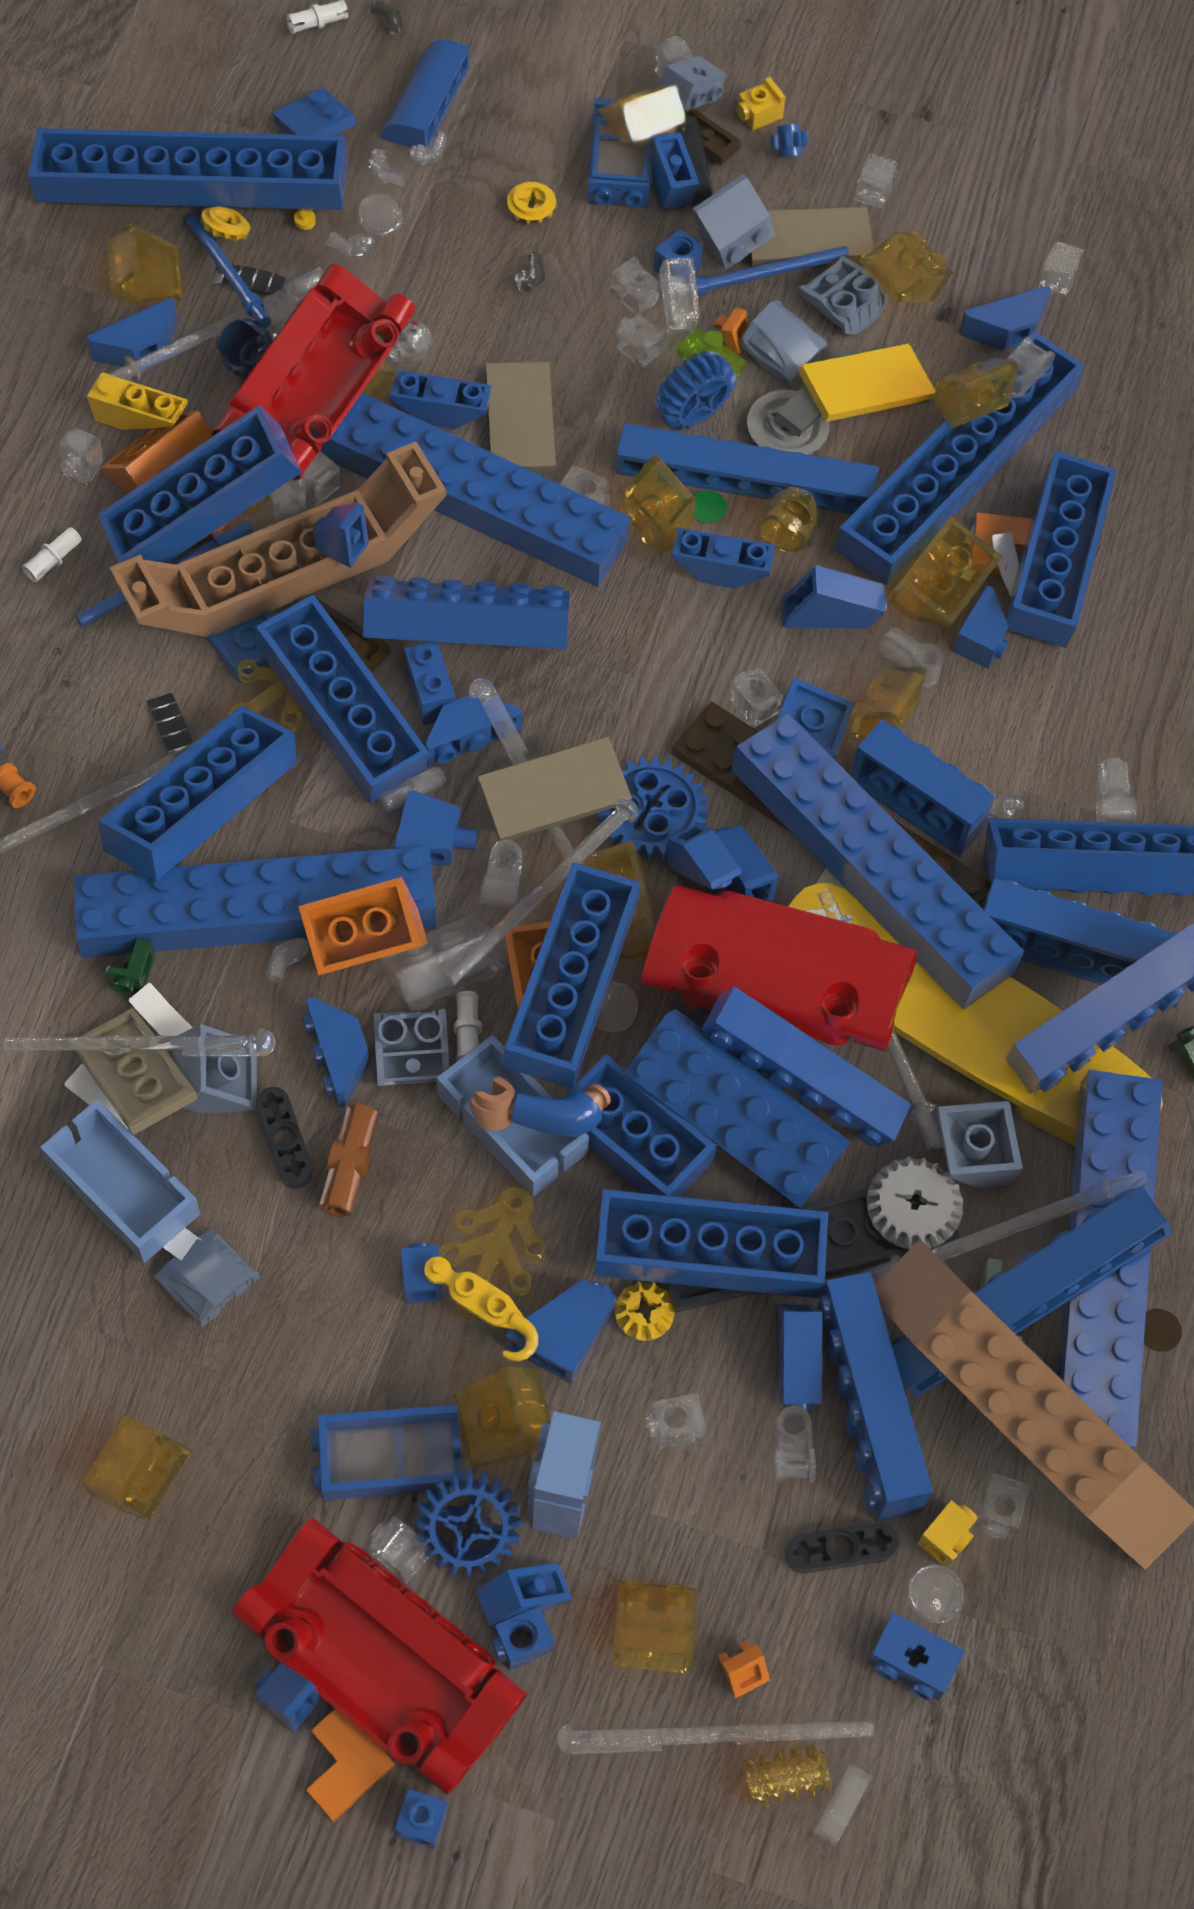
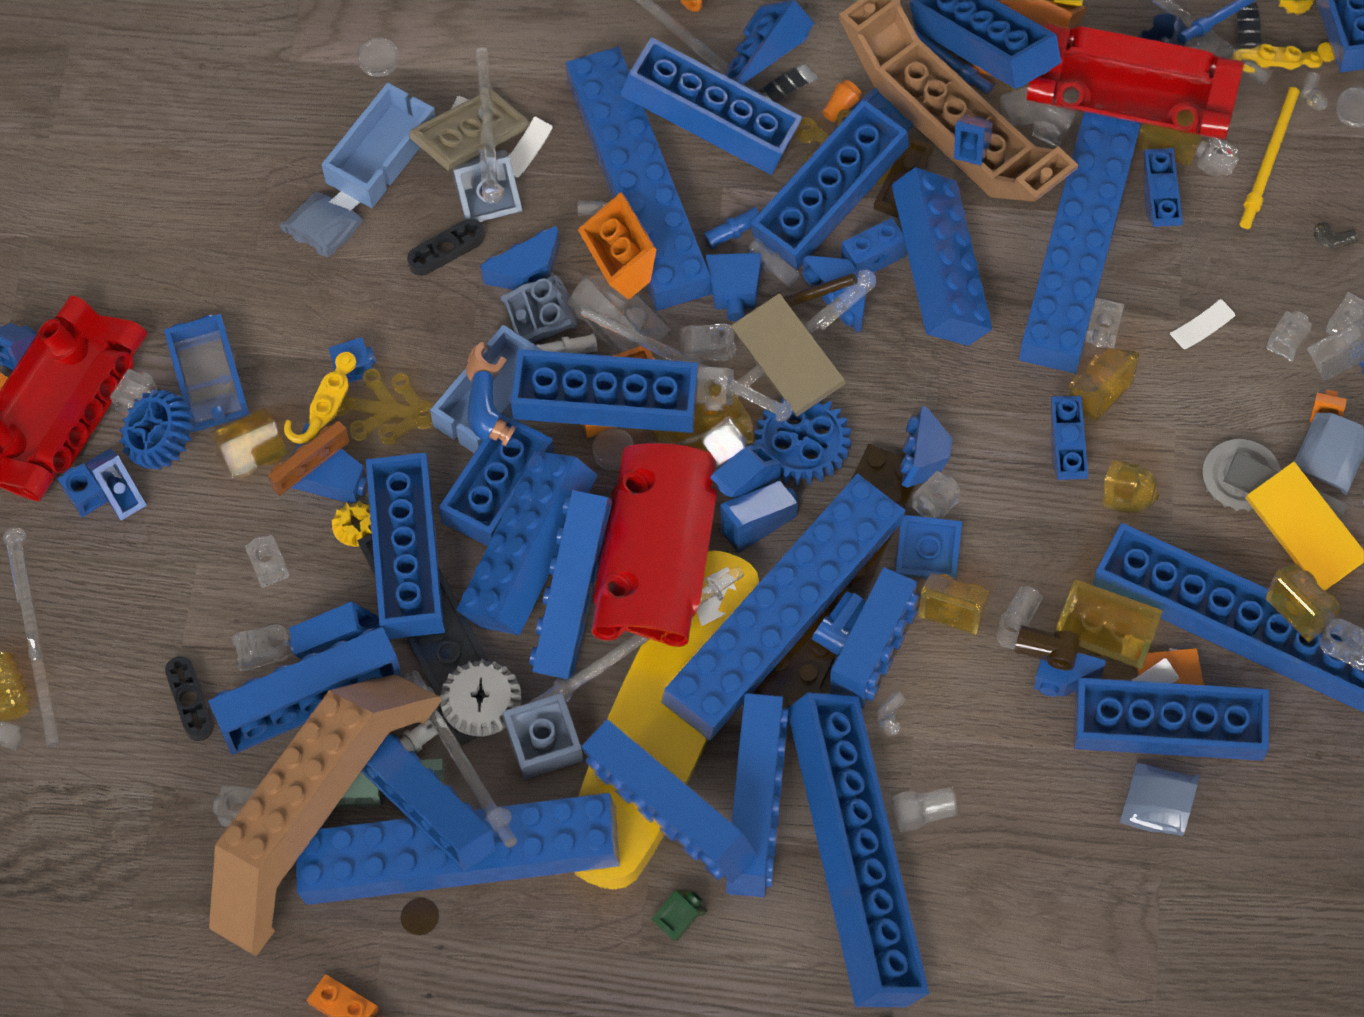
camera: 85 degrees right, 0 degrees up
(111, 724) = (769, 36): none -> blue wedge
(136, 968) = (561, 114): dark green bracket -> none
(136, 1469) = (164, 210): clear yellow slope -> none
(217, 671) = (843, 98): none -> orange cone
(305, 257) = (1268, 56): none -> yellow piece
(349, 1160) = (434, 292): dark orange piece -> none
(354, 818) = (731, 228): none -> blue pin
(468, 328) = (1254, 199): none -> yellow bar
(474, 747) = (821, 290): none -> dark brown bar
(522, 414) = (1173, 262): dark tan tile -> none
(562, 1474) = (182, 464): medium blue piece -> none
(566, 1335) = (308, 458): none -> dark orange plate
(586, 846) = (706, 377): none -> clear brick
(600, 412) = (1203, 325): none -> white sticker
(654, 1626) = (104, 574): clear yellow slope -> none
(665, 865) = (724, 440): none -> clear brick
(695, 390) = (1238, 383): blue gear -> none
(698, 689) = (925, 448): none -> blue slope
(709, 506) = (1132, 429): green sticker -> none
(711, 341) = (1296, 399): clear neon green tile -> none
(744, 1670) = (81, 644): orange tile -> none
(747, 468) = (1175, 444): blue brick -> none
(833, 601) = (1053, 543): blue slope -> none
(913, 819) = (836, 628): none -> blue piece
(935, 1666) = (108, 778): blue brick -> none
(936, 1593) = (164, 773): clear piece -> none
(948, 1533) = (209, 770): yellow brick -> none
(972, 620) = (1056, 648): none -> dark brown piece
(1138, 582) = (1159, 800): none -> sand blue slope

